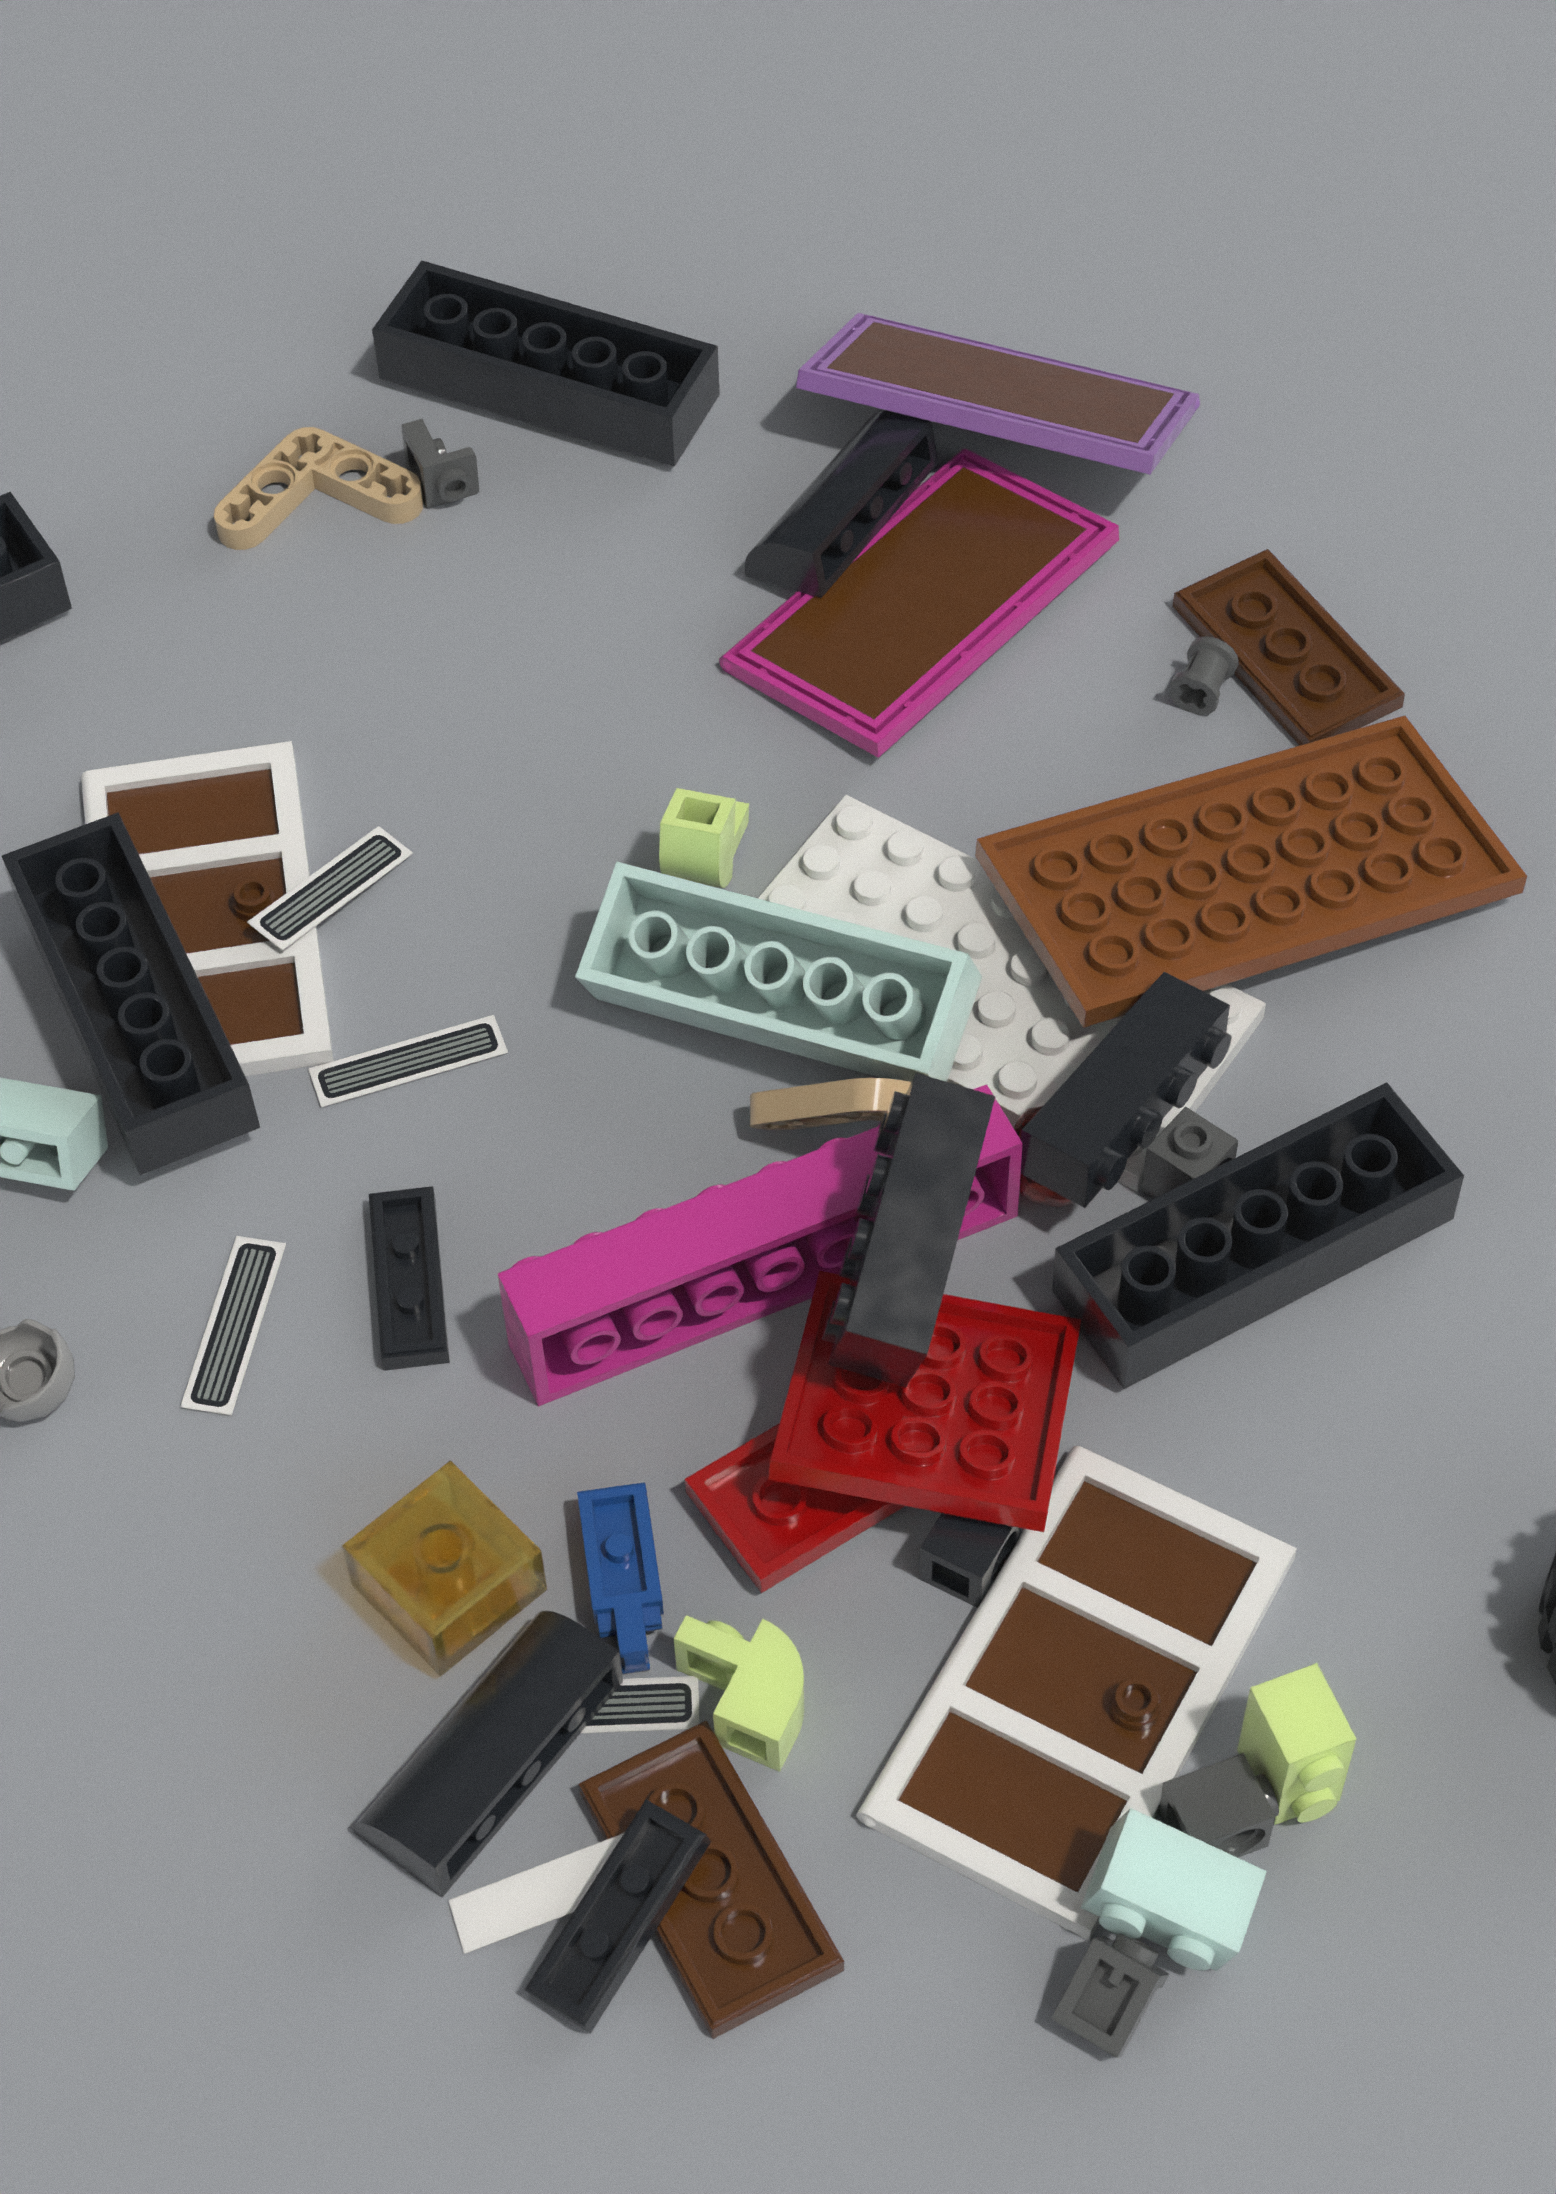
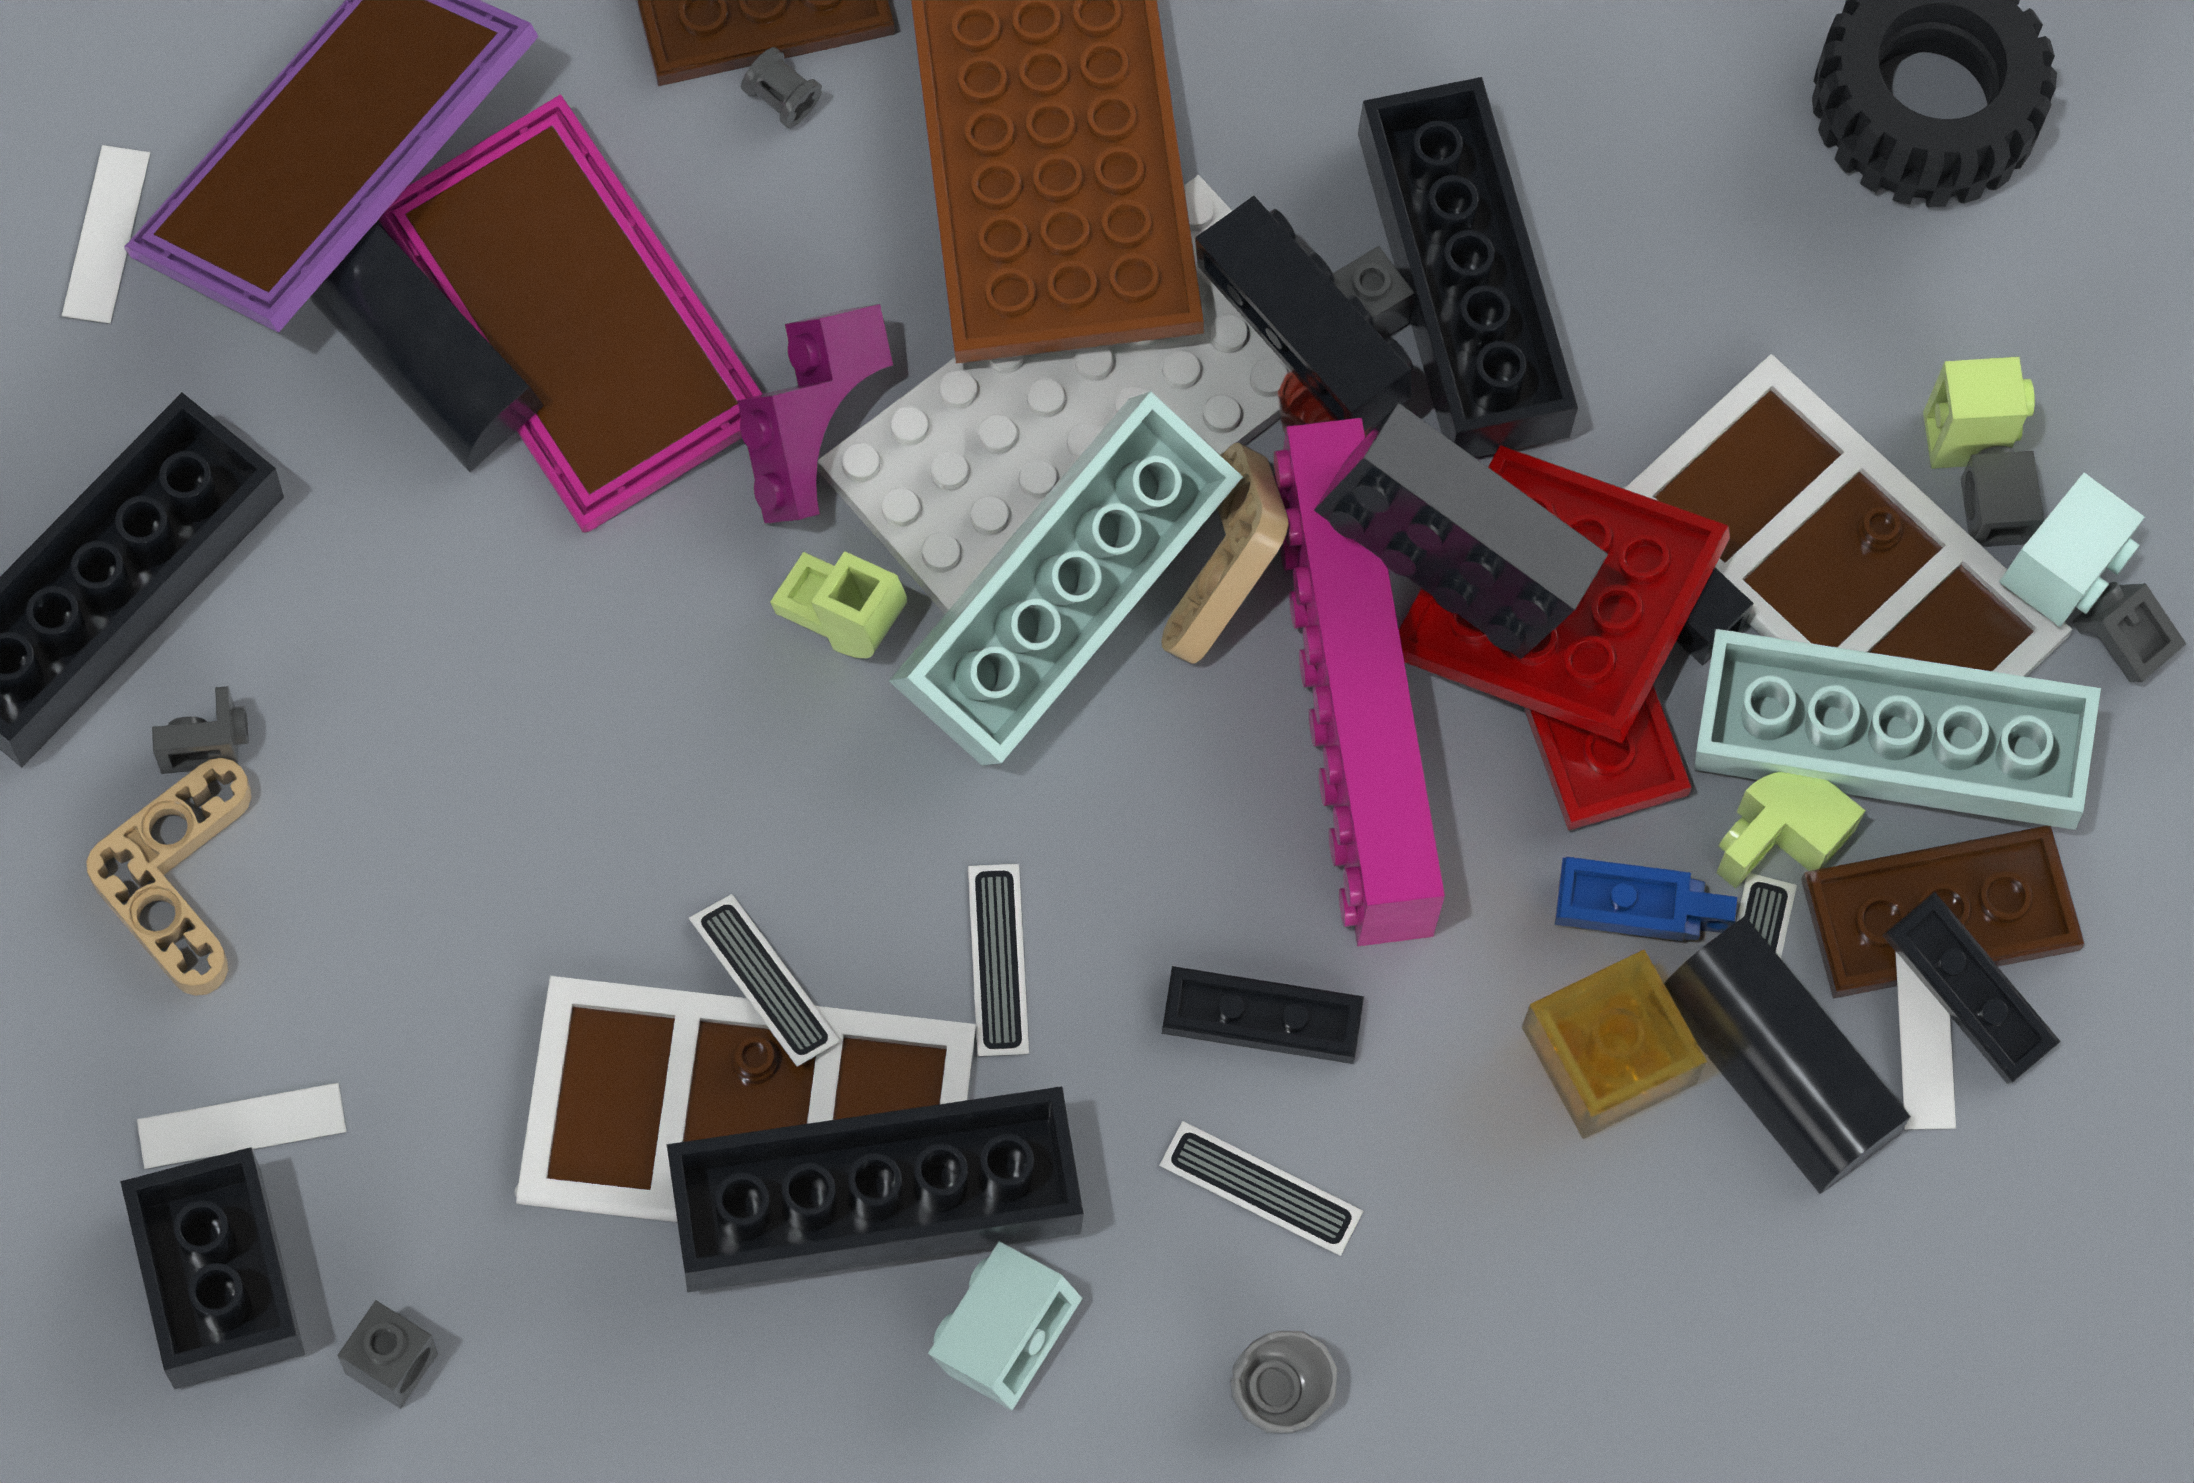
camera: 80 degrees left, 15 degrees up
(111, 593) = (241, 1125): none -> white sticker
(856, 740) = (789, 424): none -> magenta arch
(881, 1755) = (1899, 728): none -> light aqua brick
(882, 304) = (105, 233): none -> white sticker

